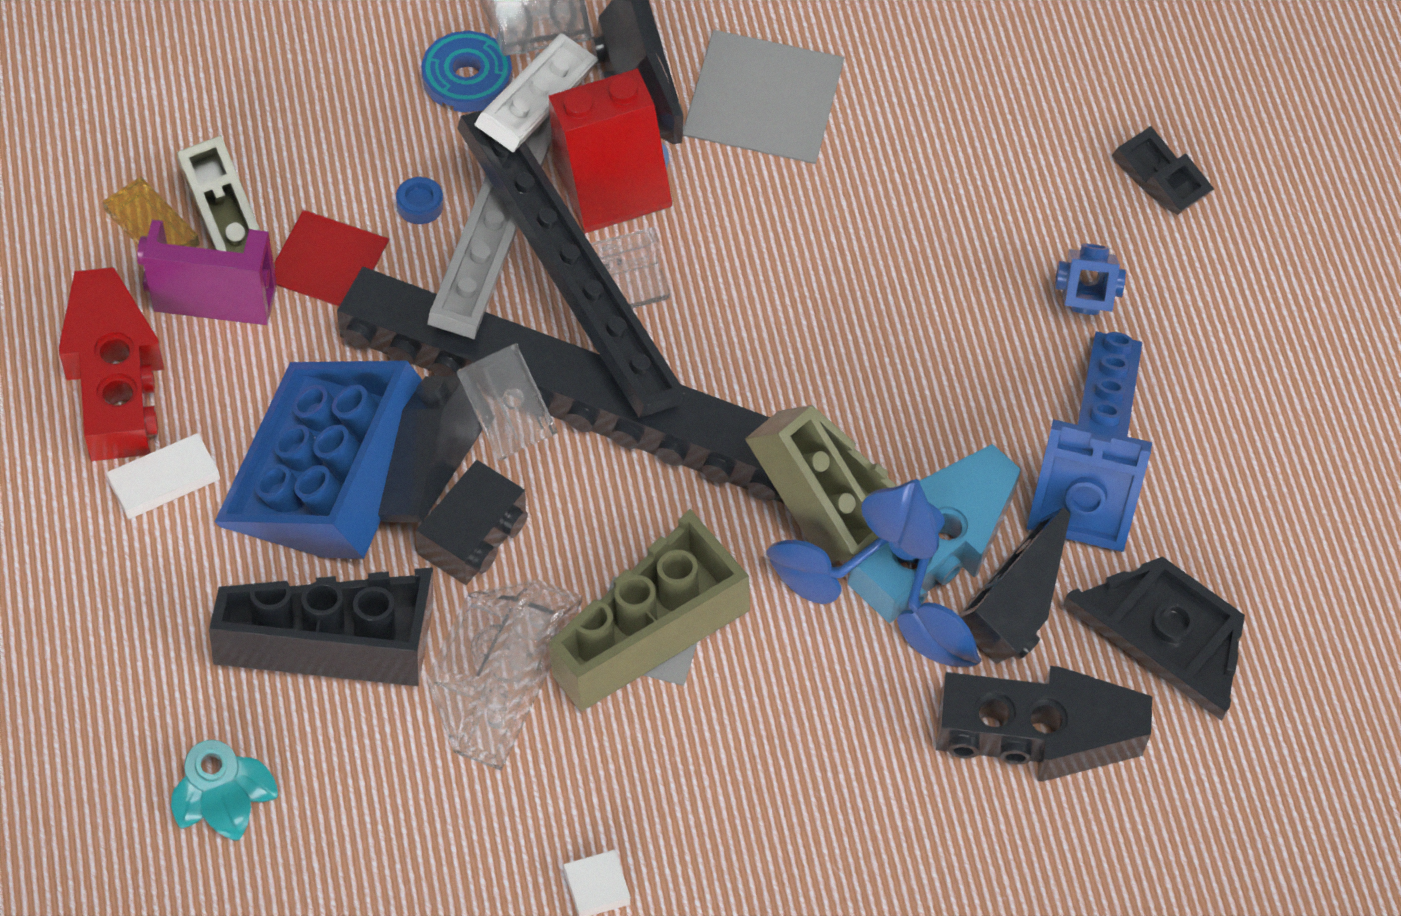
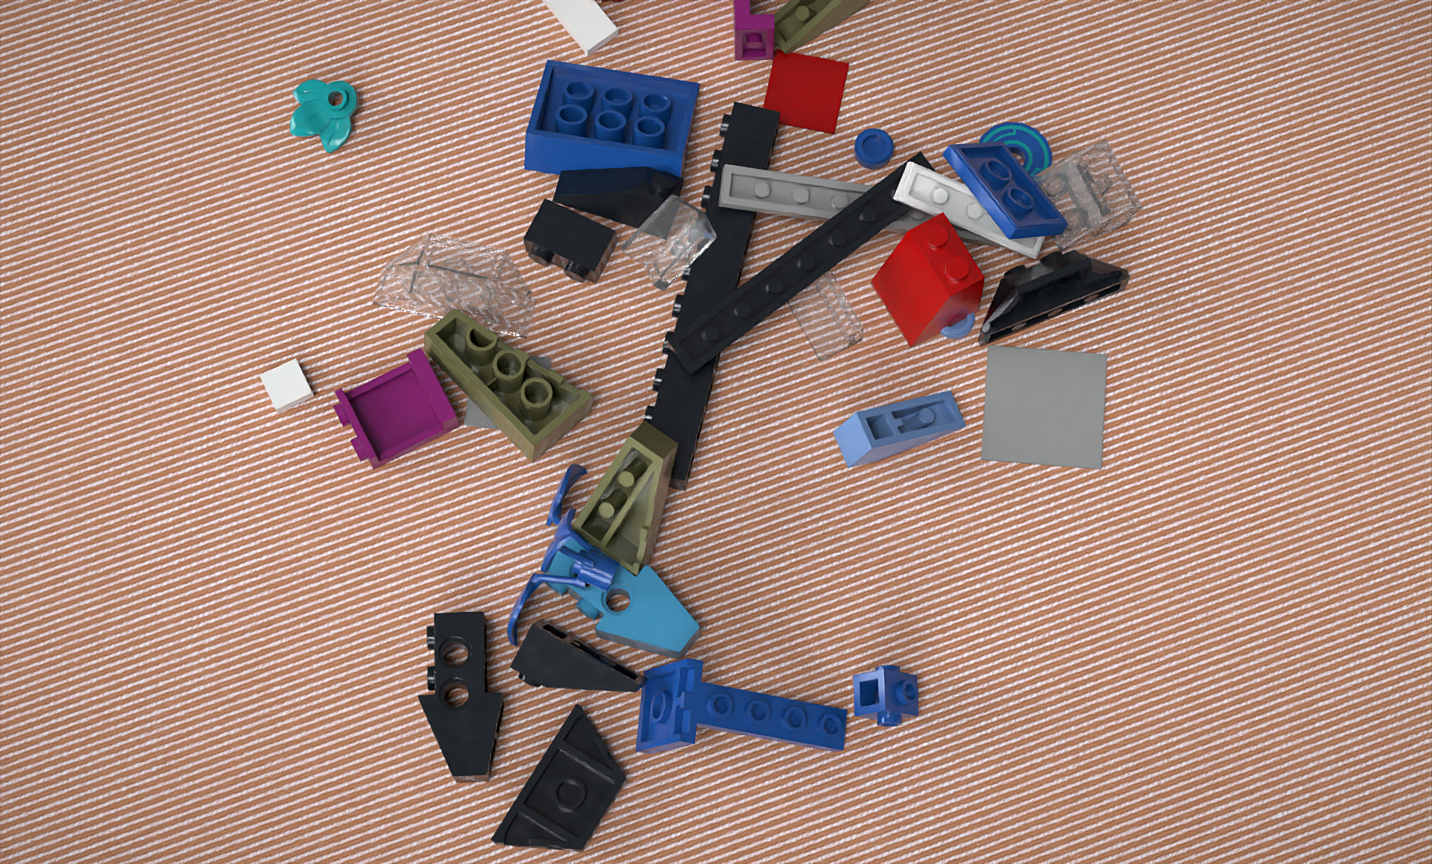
camera: 85 degrees right, 15 degrees up
(327, 628) = (460, 170): black wedge -> none
(519, 54) = (1005, 189): none -> blue tile
(655, 750) = (396, 411): none -> magenta panel
(774, 227) = (897, 428): none -> medium blue slope
(1156, 169) = (1028, 755): black slope -> none

